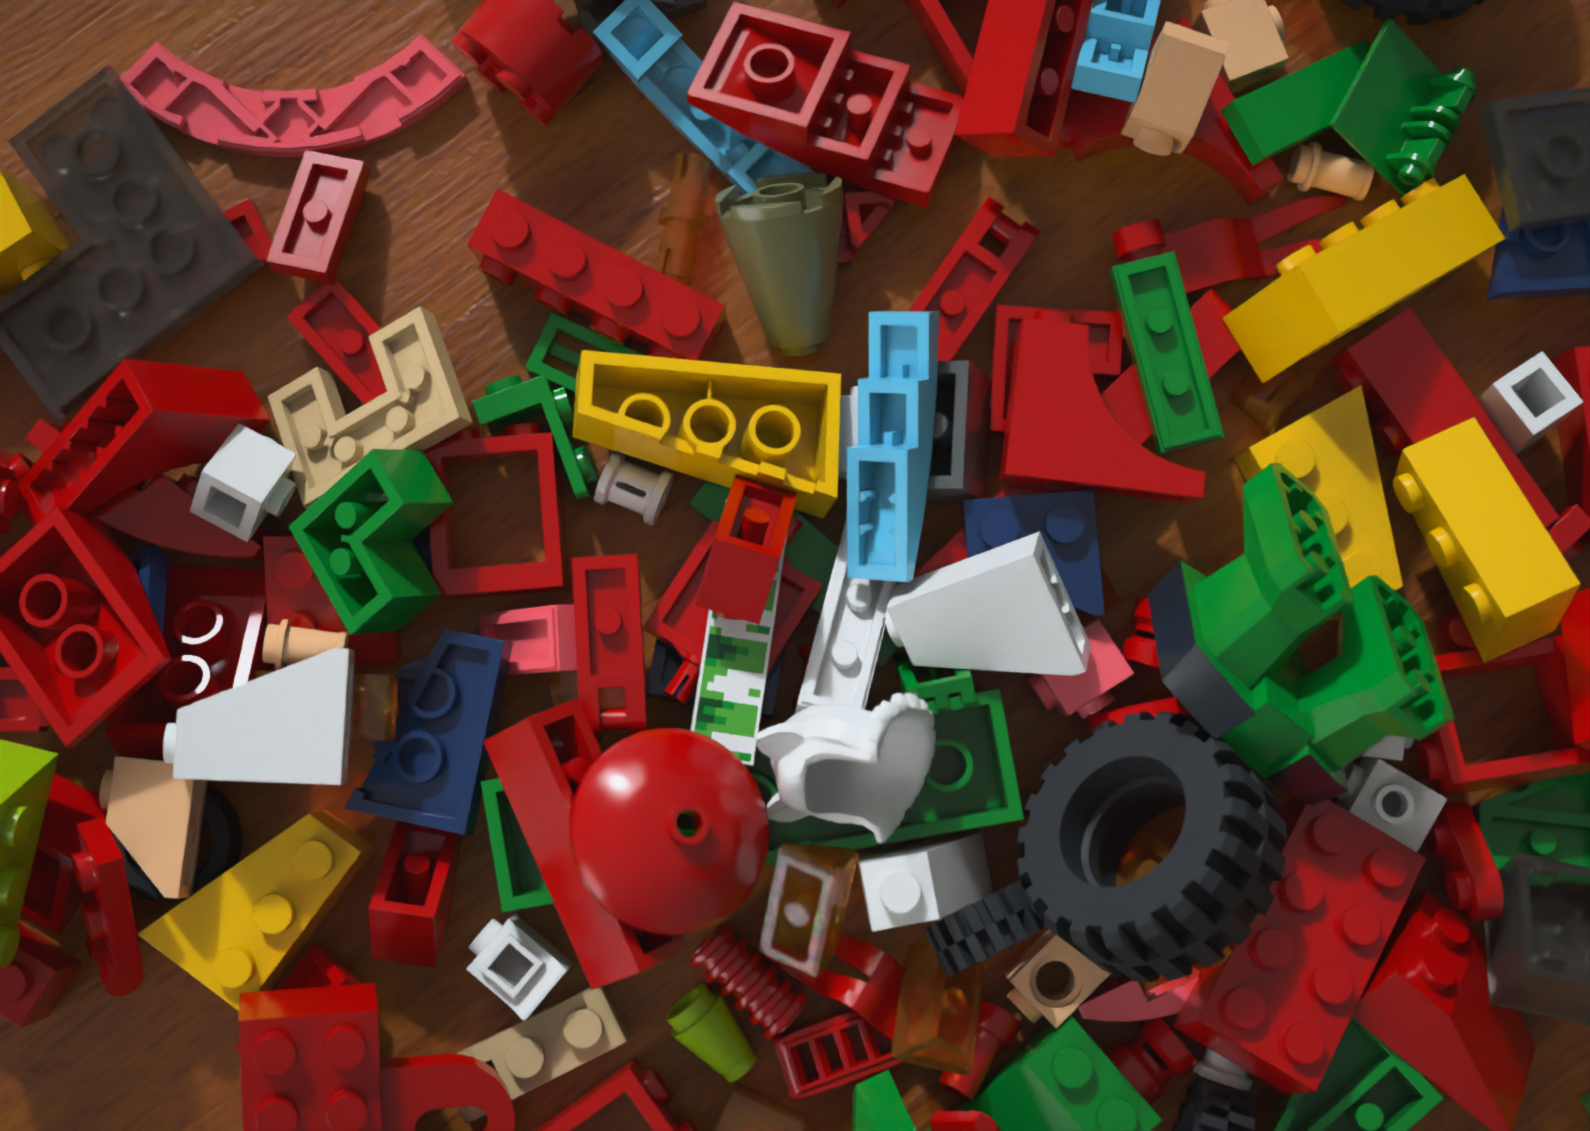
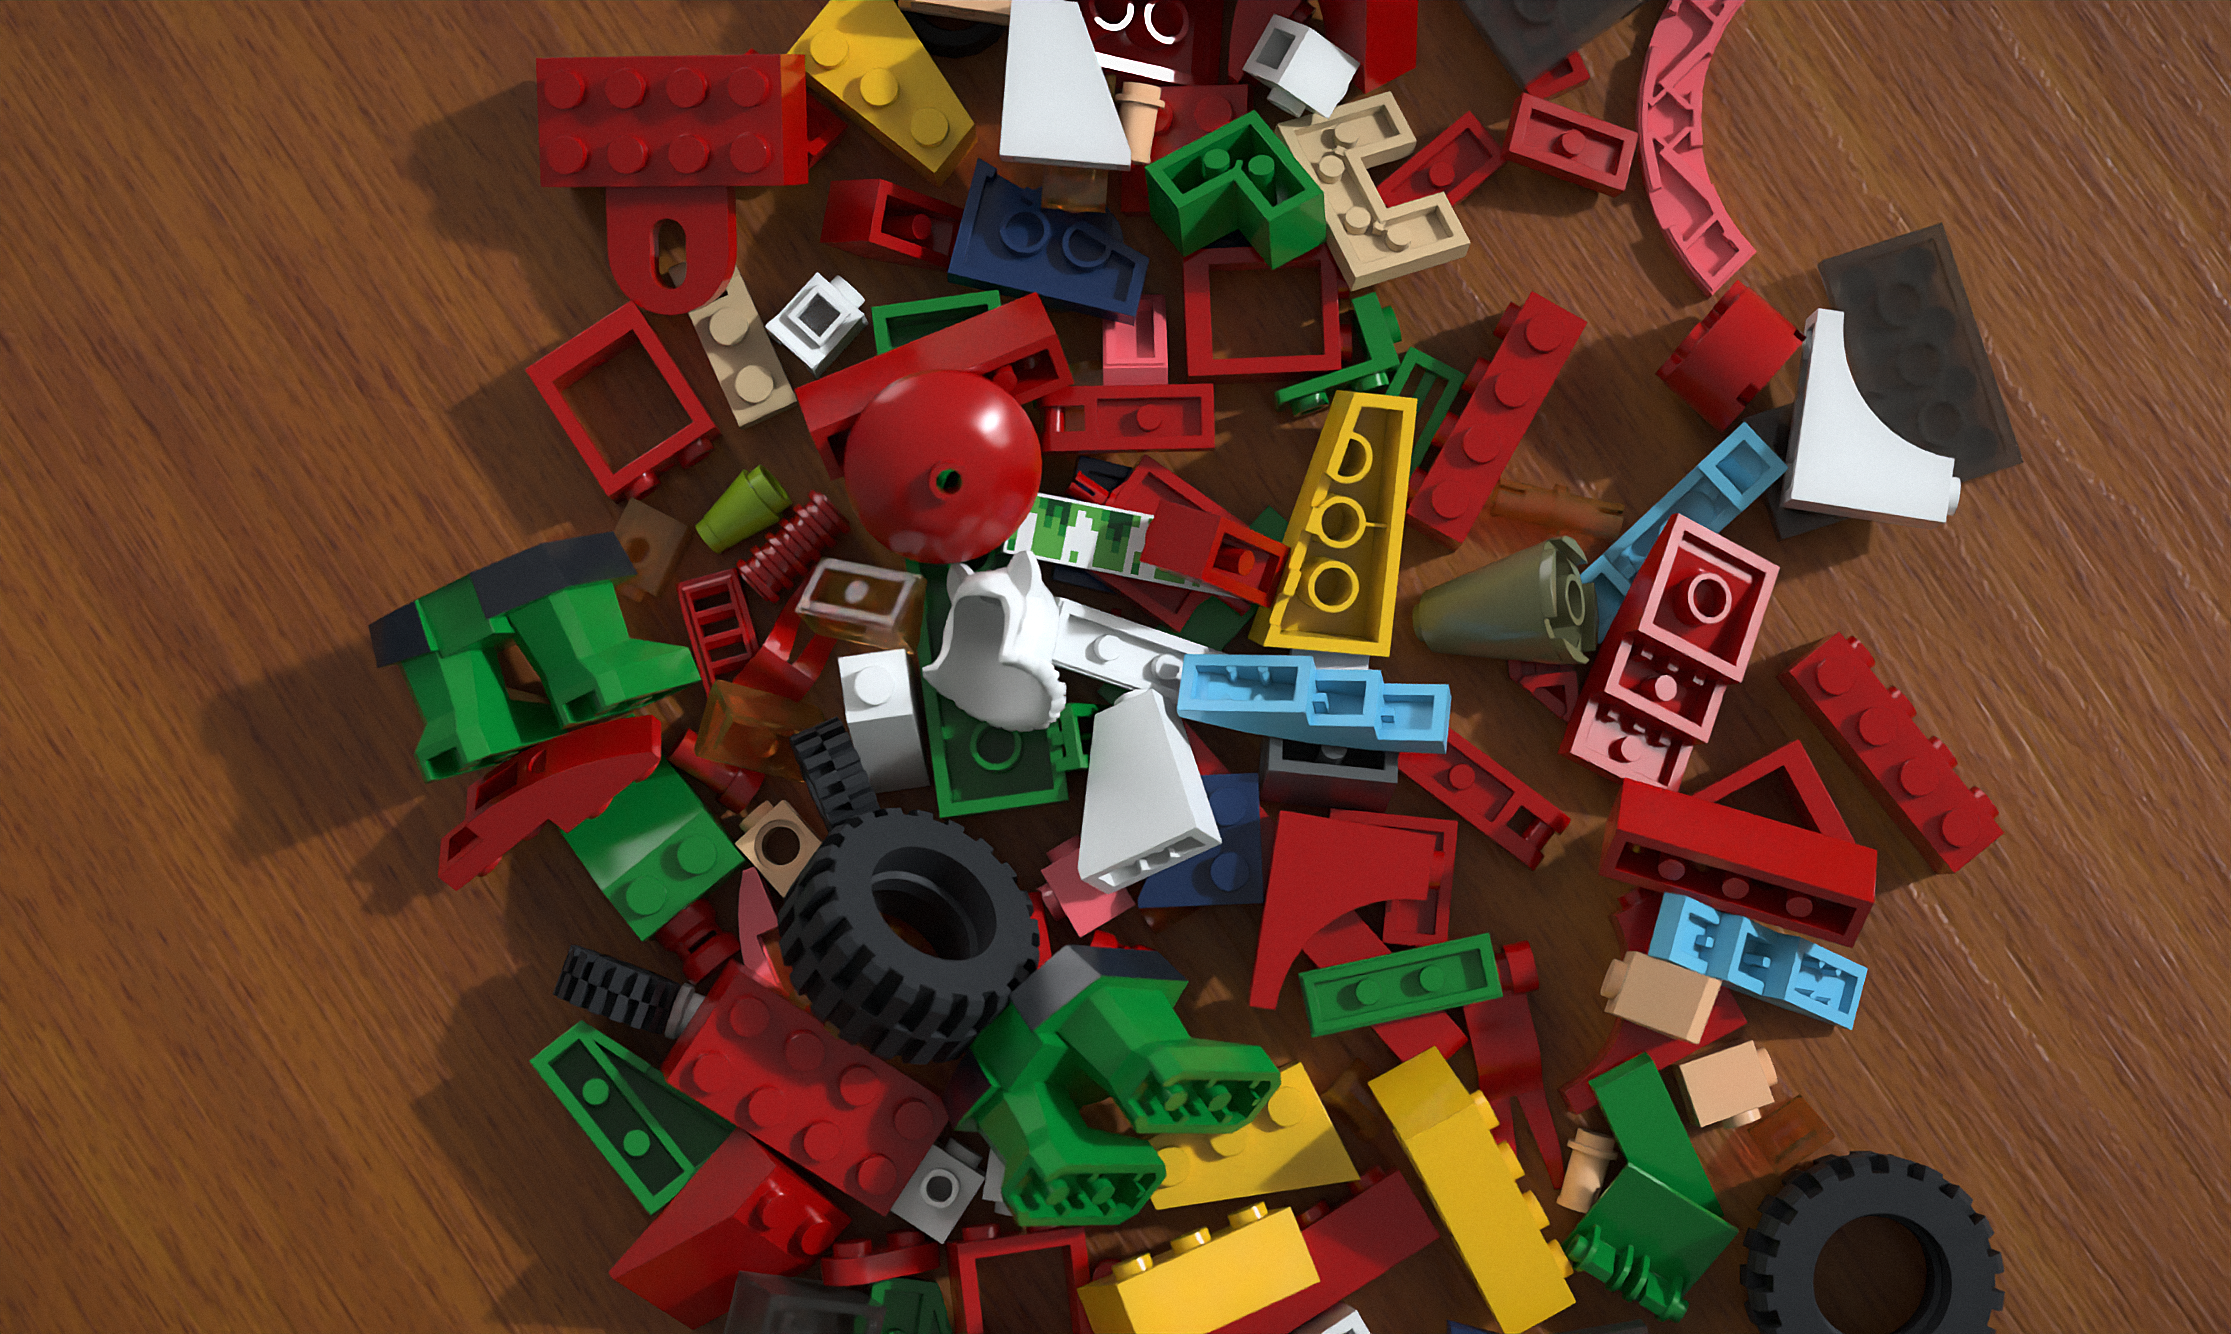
camera: 90 degrees right, 0 degrees up
(647, 503) = (1285, 451): white bush -> none

